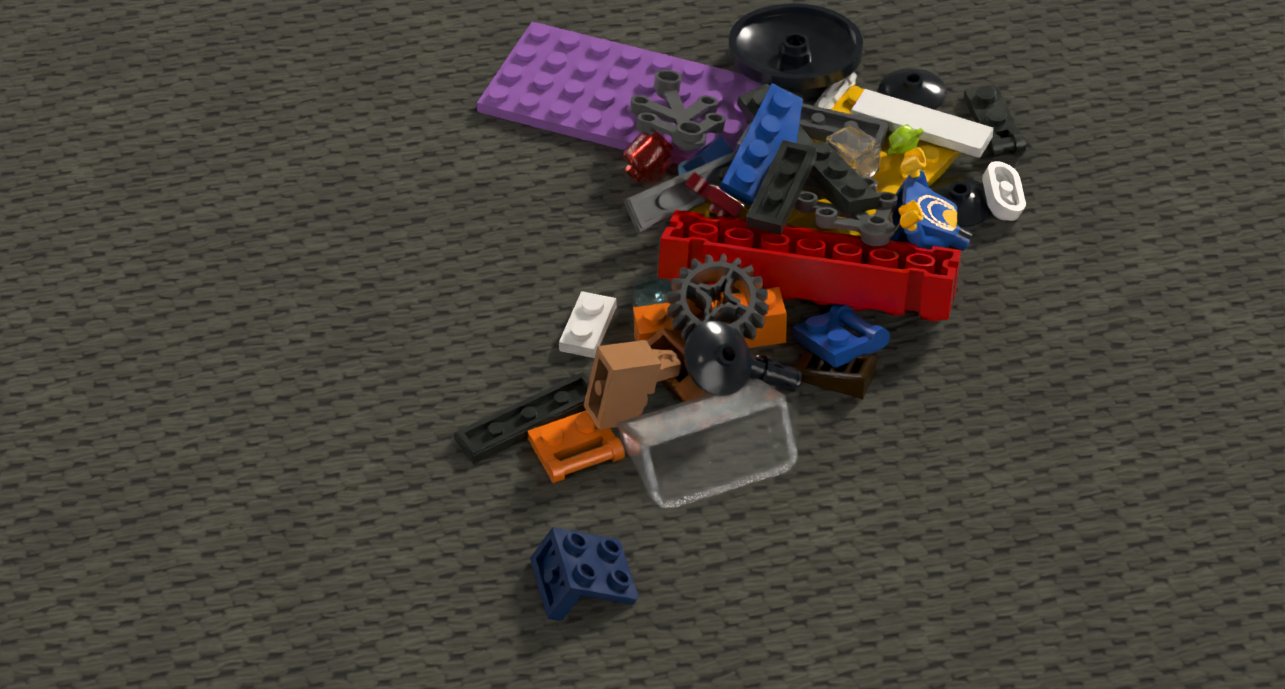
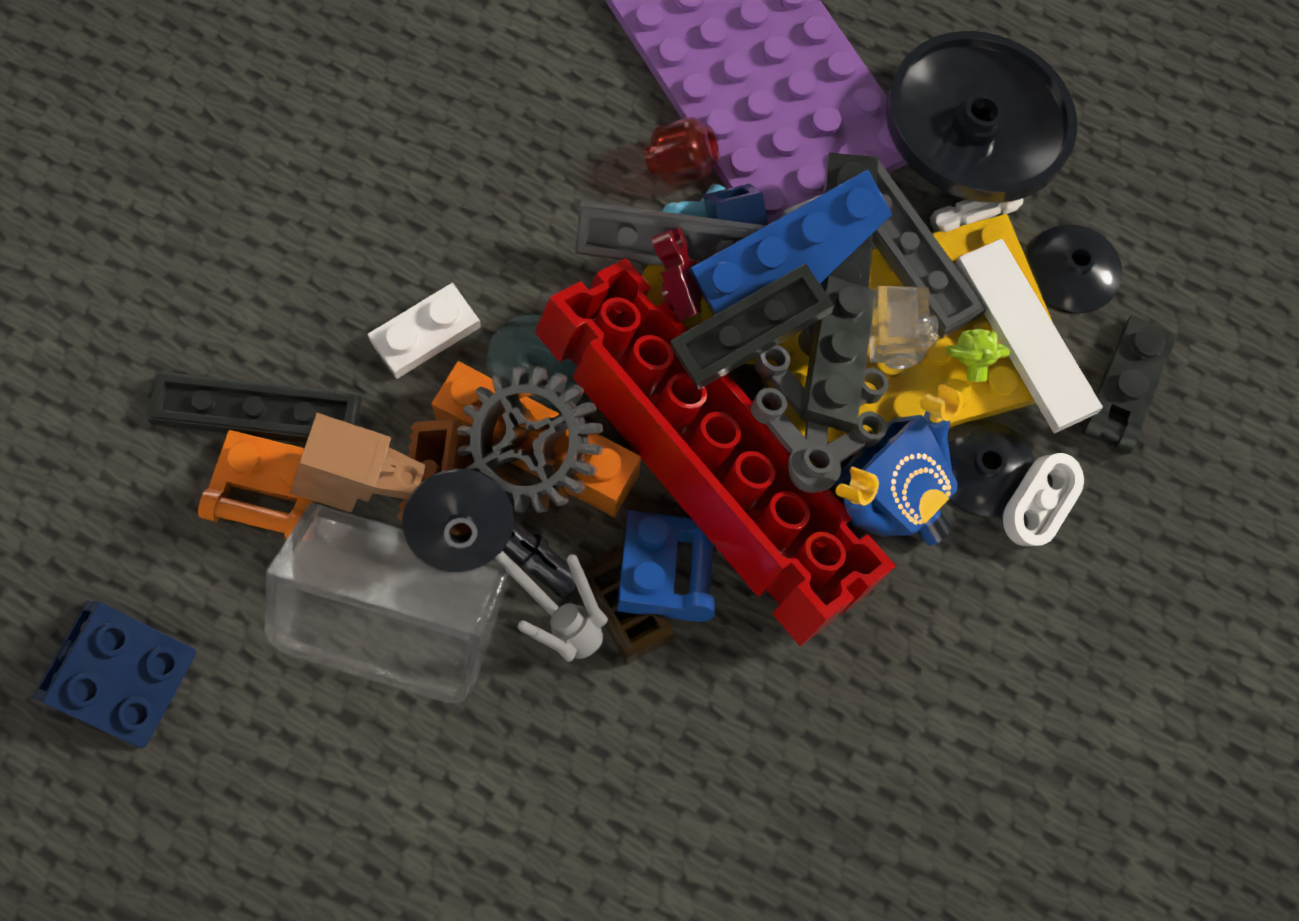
camera: 30 degrees right, 25 degrees up
(685, 133) = (781, 72): dark grey plant -> none
(817, 389) = (575, 628): none -> light grey plant

